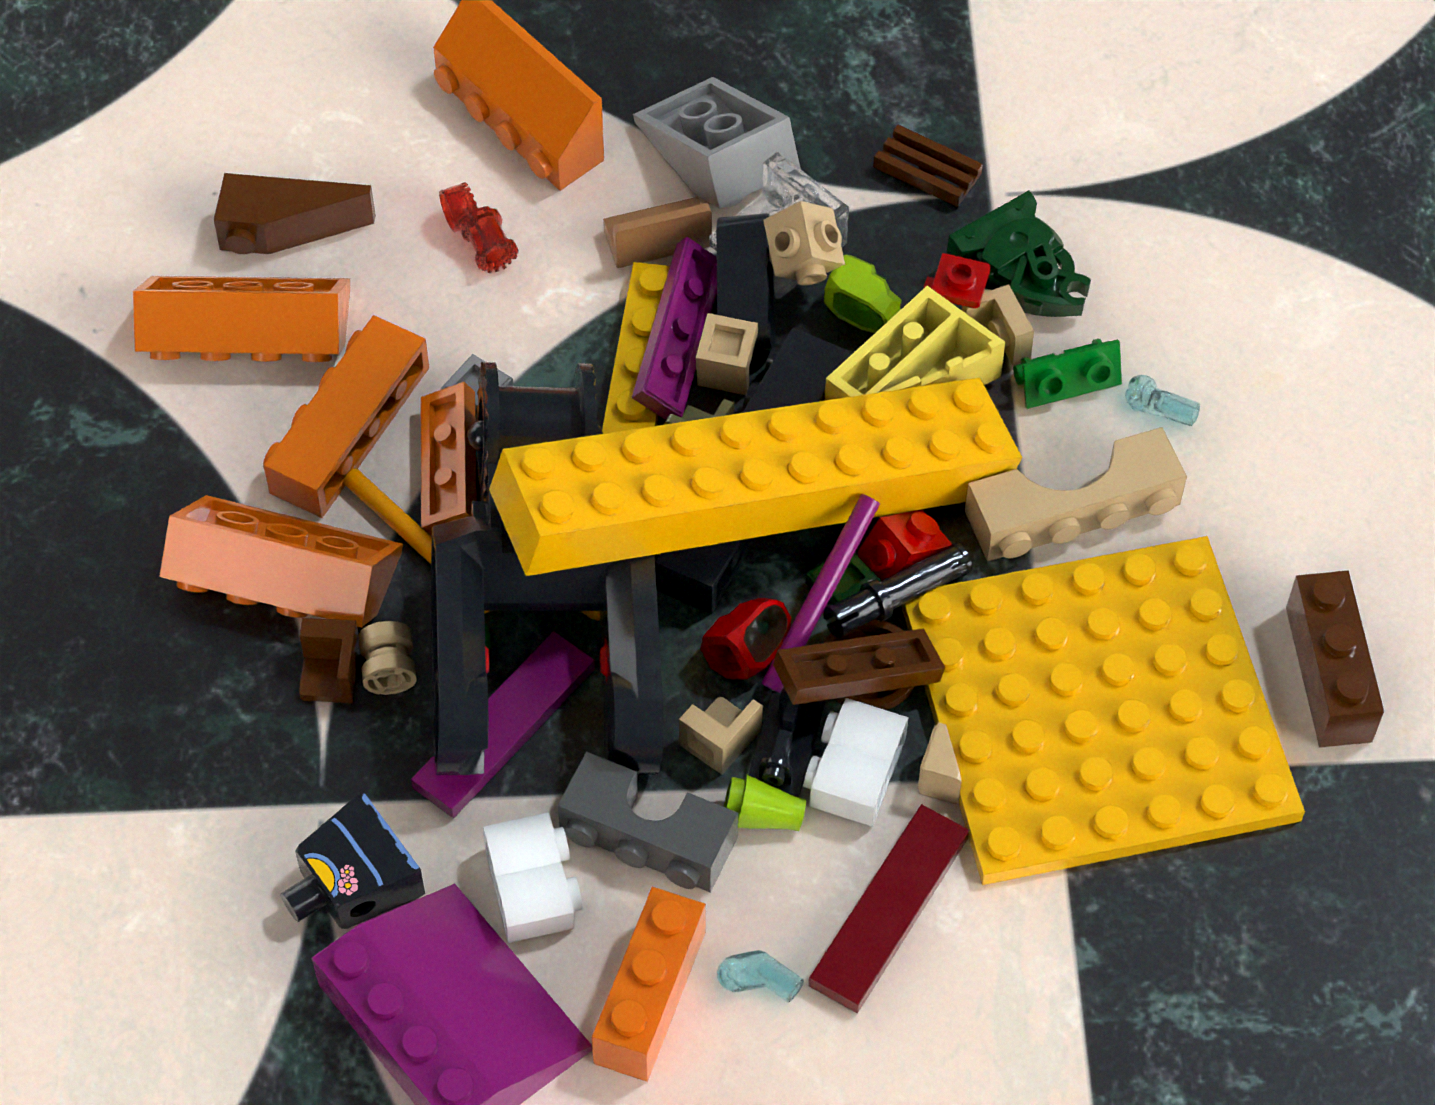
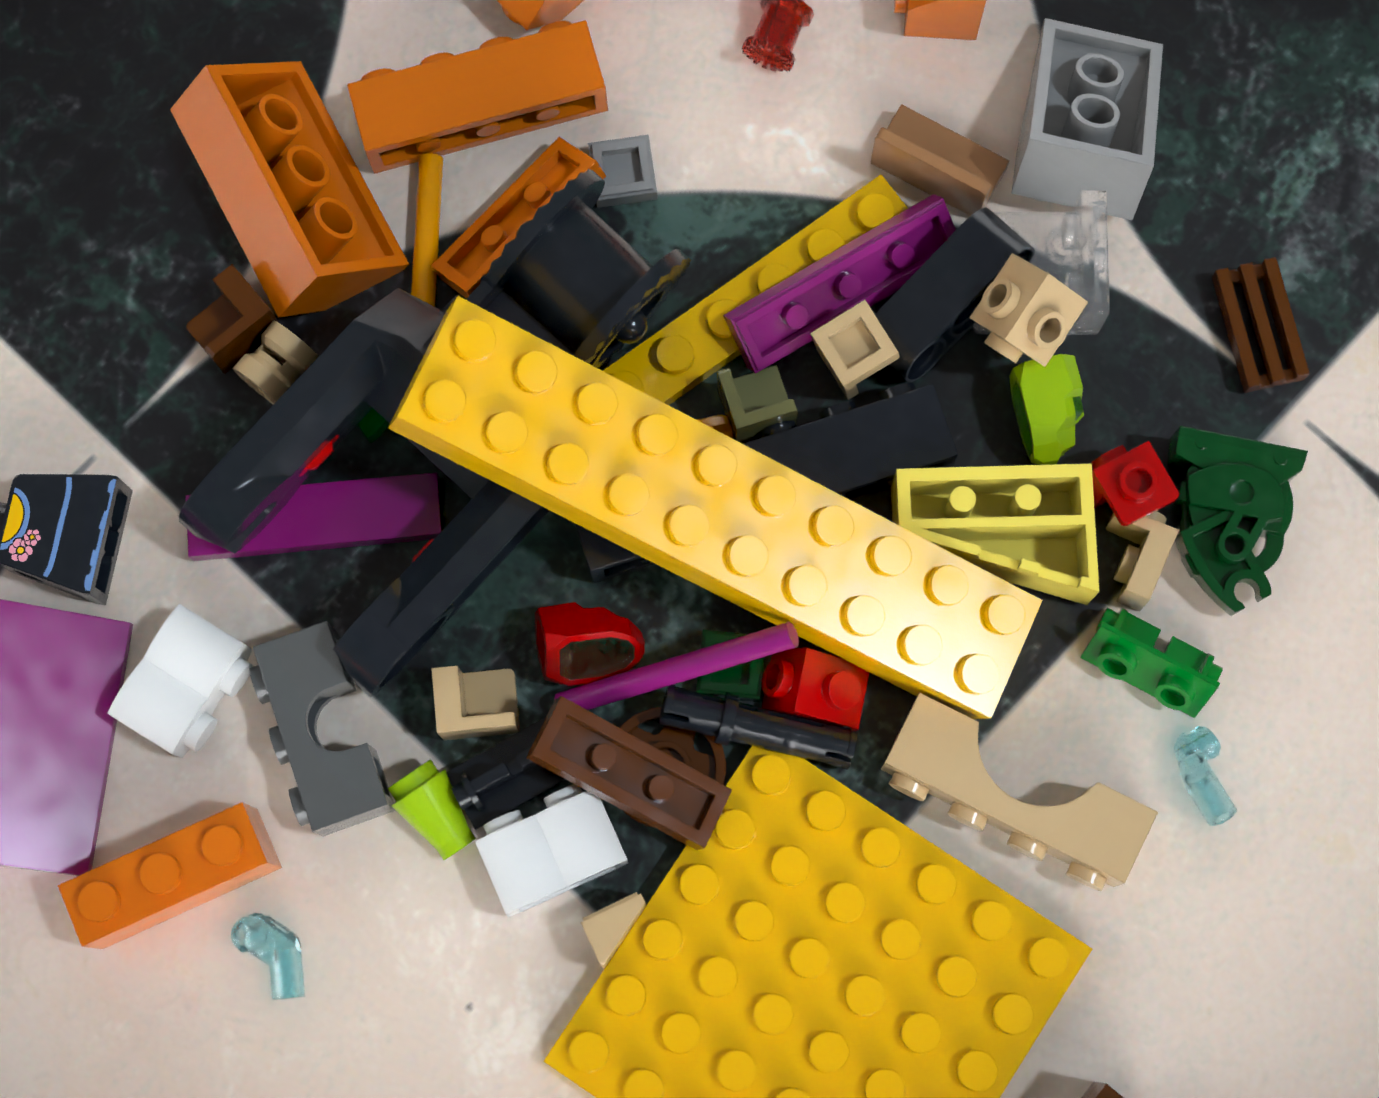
camera: 50 degrees right, 20 degrees up
(888, 908) = (441, 1004): dark red tile -> none

